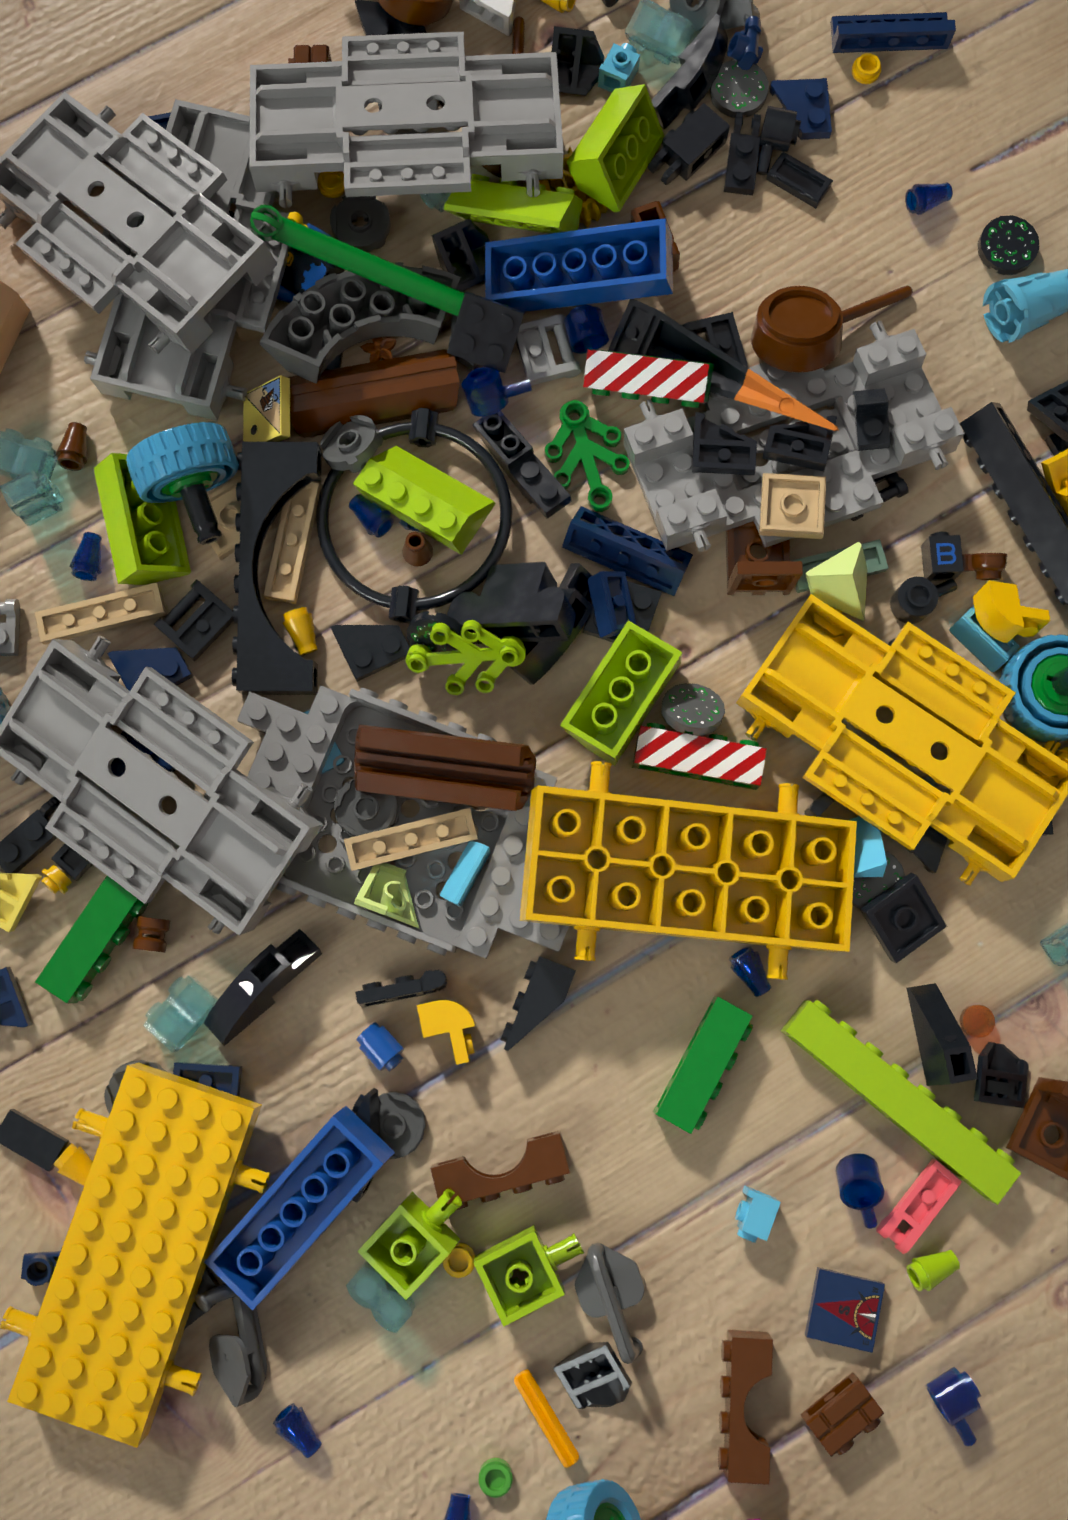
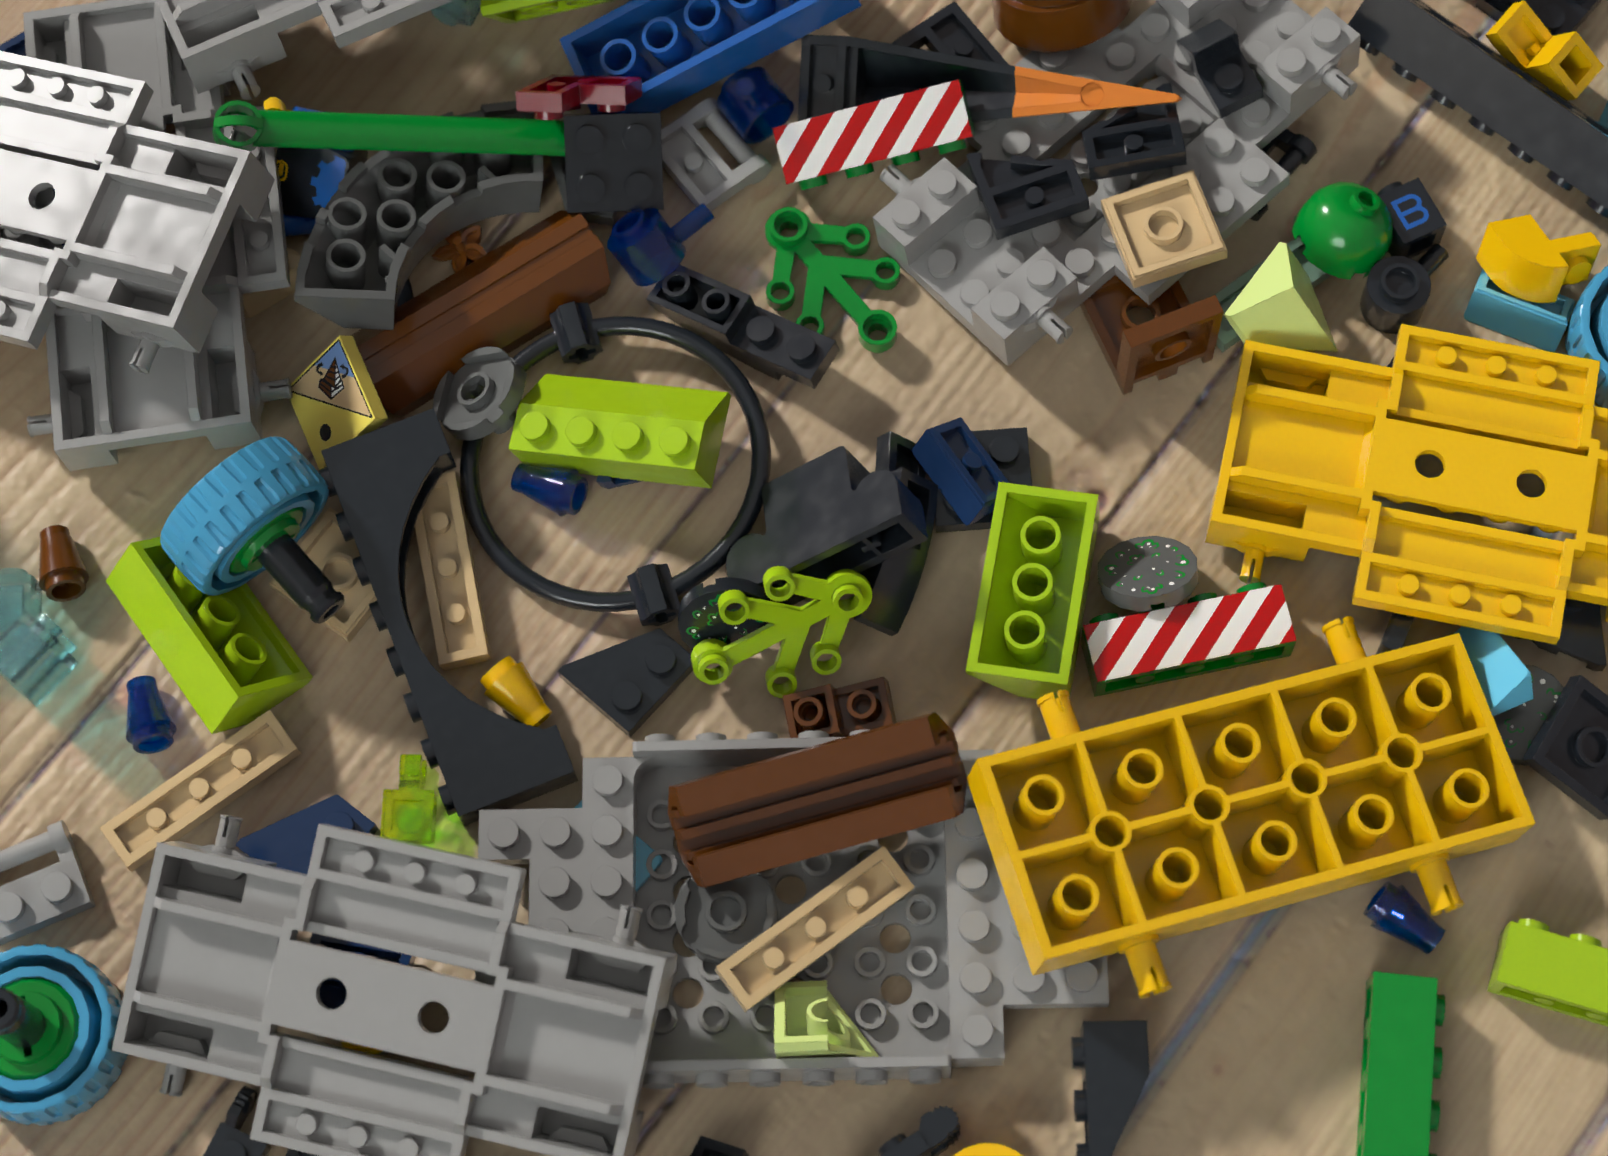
camera: 15 degrees left, 10 degrees down
(202, 626) = (364, 746): black plate -> none
(213, 674) = (410, 810): none -> clear neon green plate
(331, 184) = (299, 45): yellow plate -> none
(367, 237) = (370, 60): dark grey plate -> none
(417, 555) = (640, 508): reddish brown cone -> none
(462, 252) = (522, 57): black slope -> none
(465, 873) = (917, 946): medium azure slope -> none
(475, 278) = (563, 93): none -> dark red plate
(482, 716) = (840, 709): none -> reddish brown slope
(625, 552) = (949, 387): dark blue fence -> none
(901, 548) = (1344, 229): none -> green cylinder
(986, 565) = (1474, 206): reddish brown piece -> none

